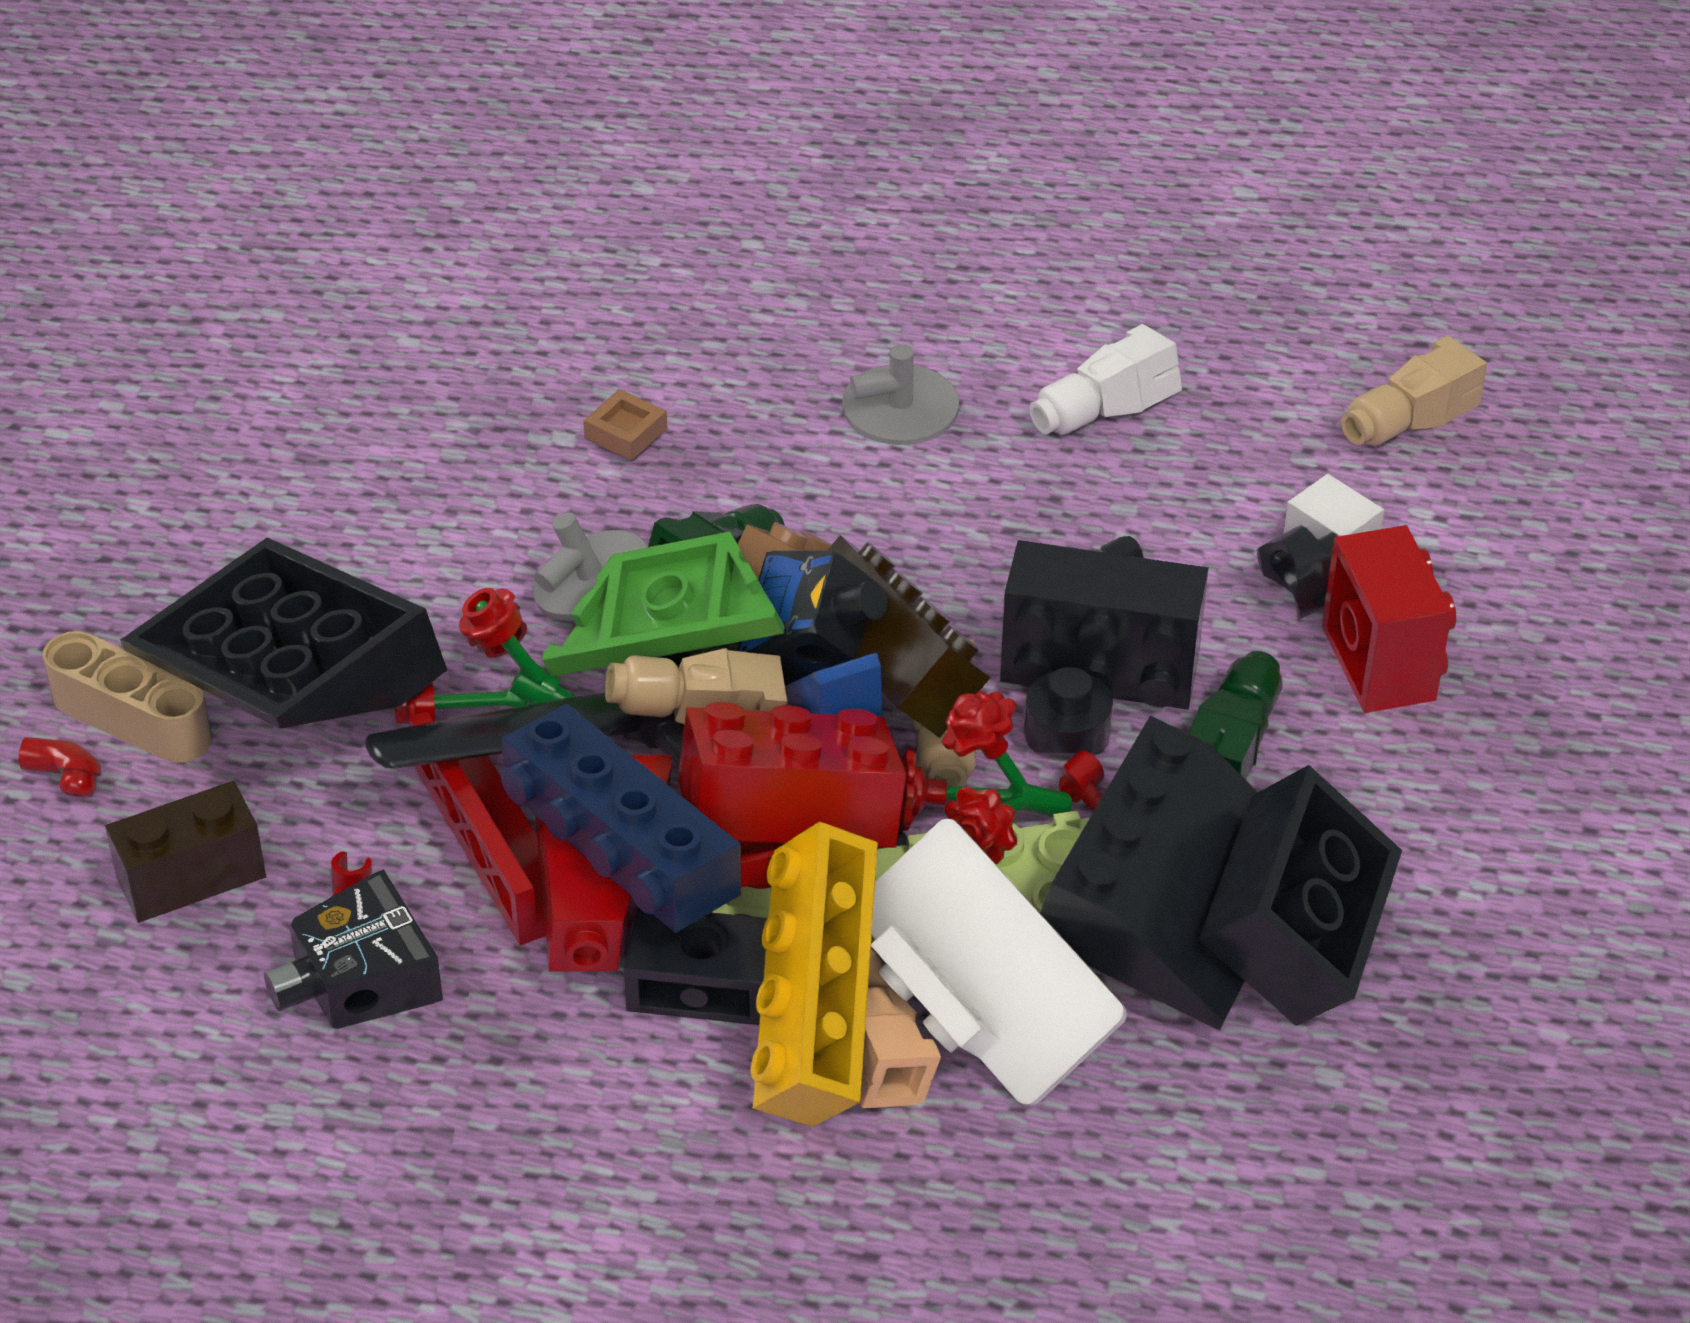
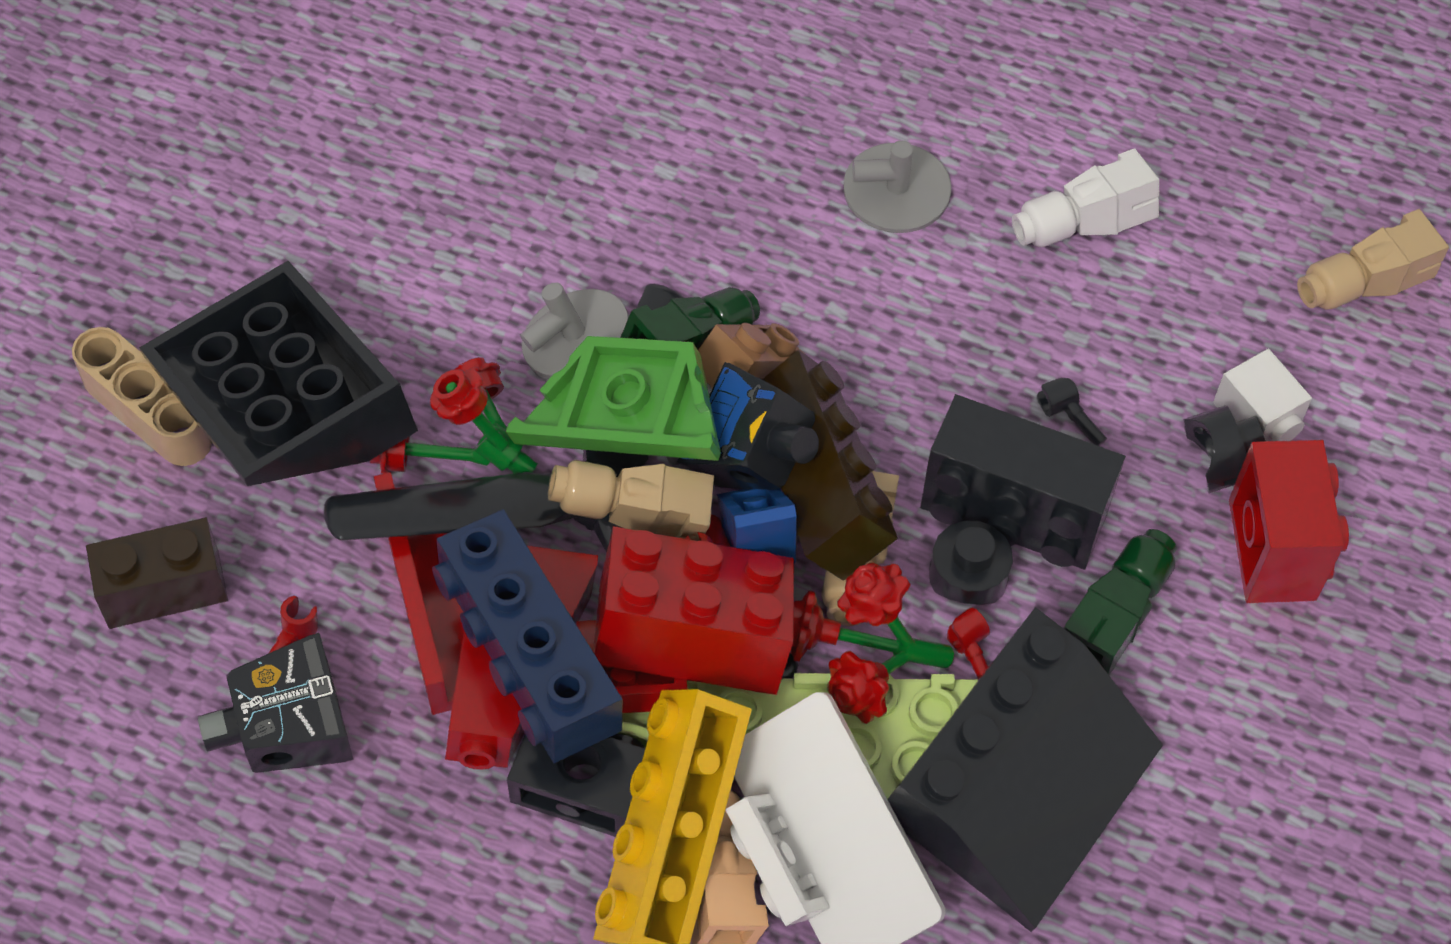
camera: 10 degrees right, 15 degrees up
(63, 757) = (81, 452): red arm -> none
(625, 424) = (641, 173): medium nougat plate -> none
(1302, 896) = (1134, 818): black brick -> none

